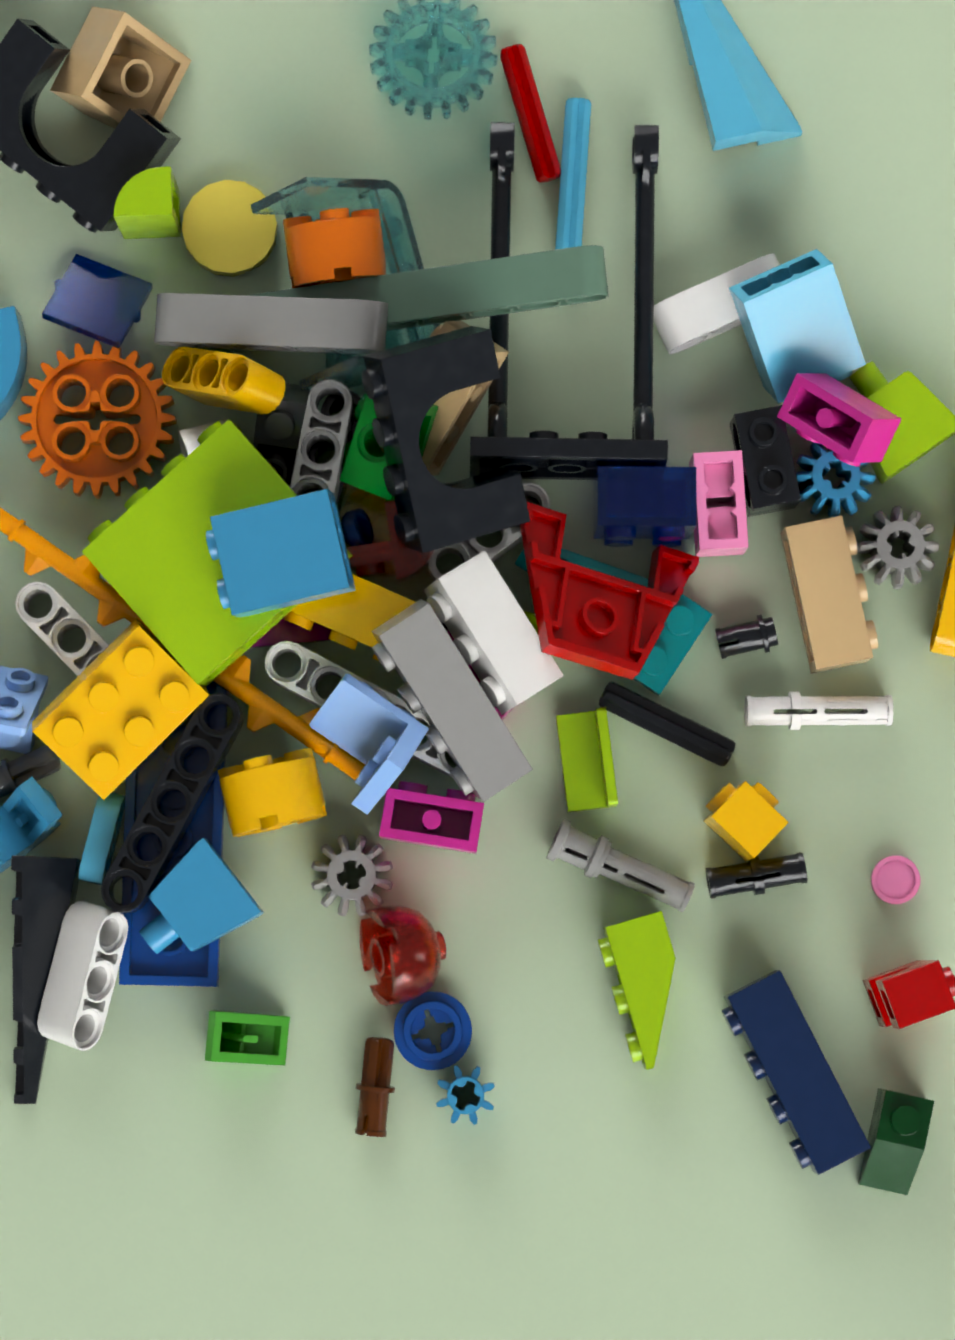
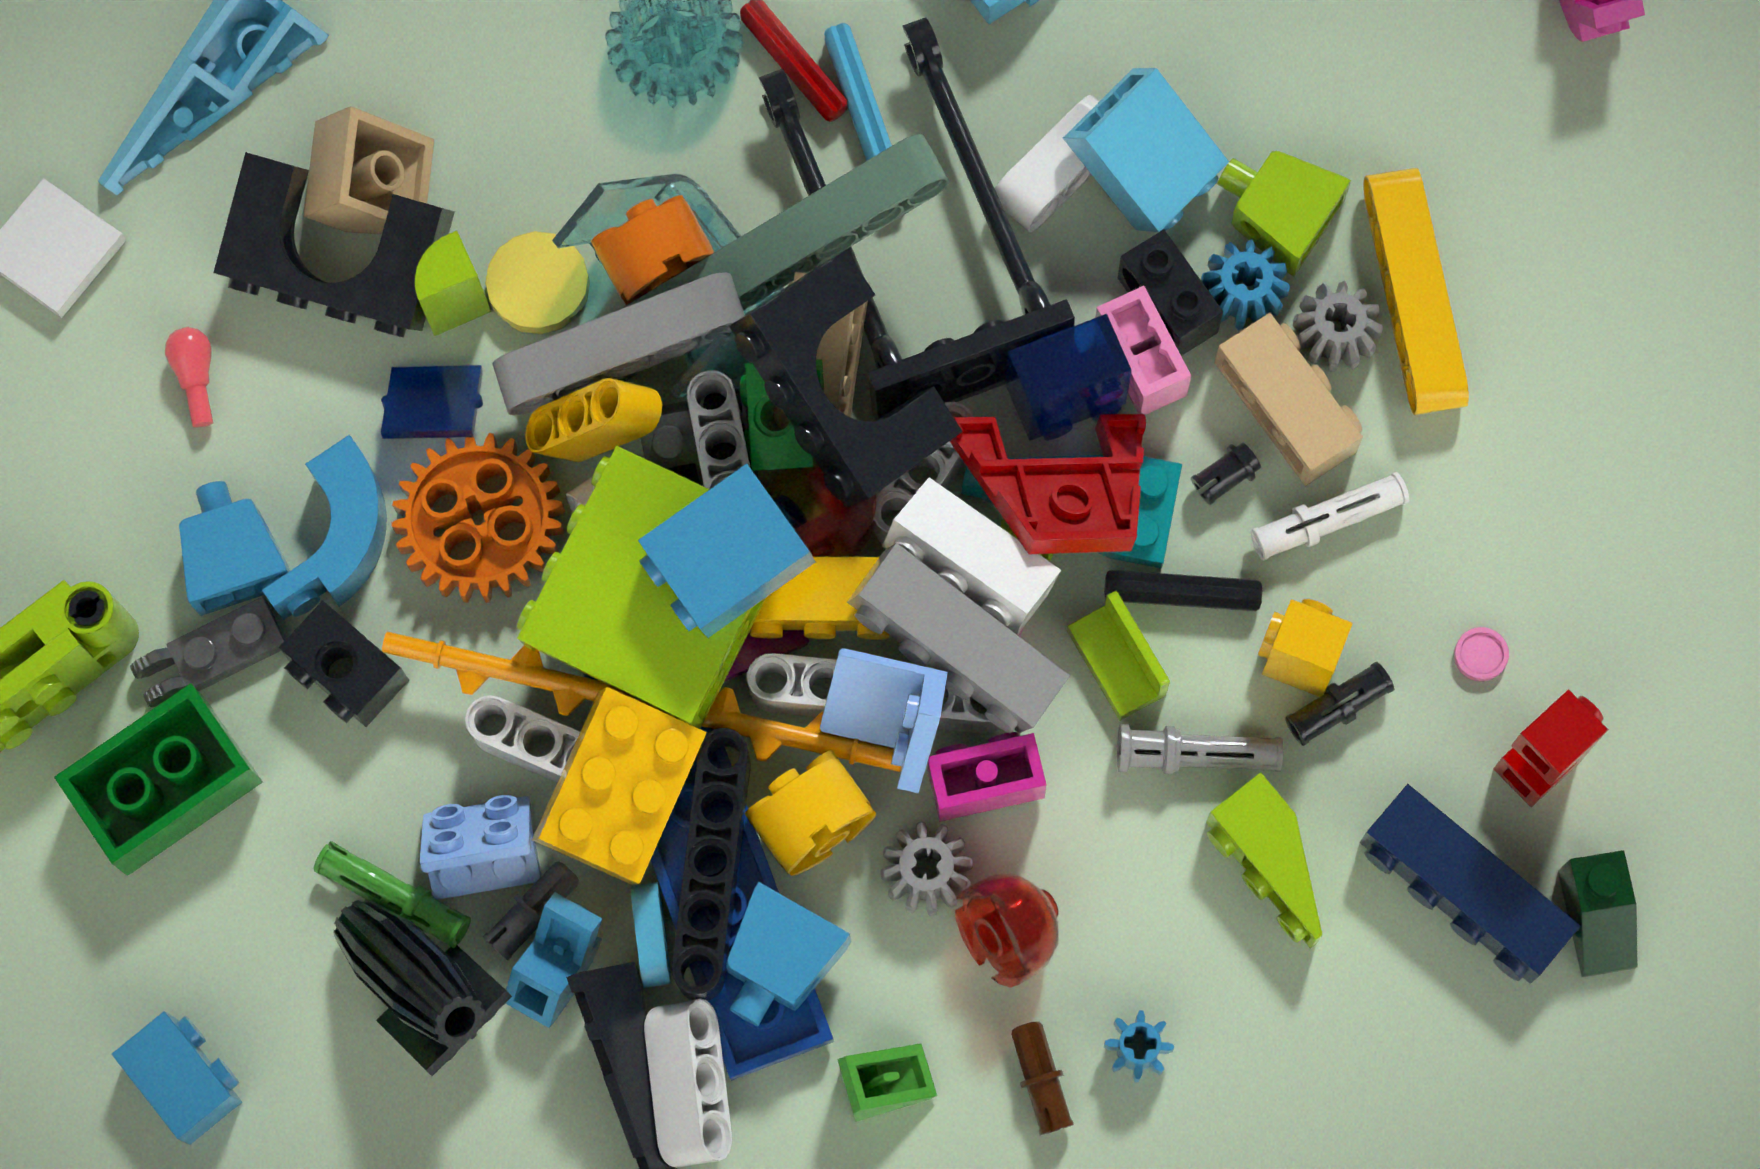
camera: 15 degrees left, 10 degrees down
(453, 1041) = (1076, 969): blue gear -> none
(838, 418) = (1228, 216): dark pink brick -> none

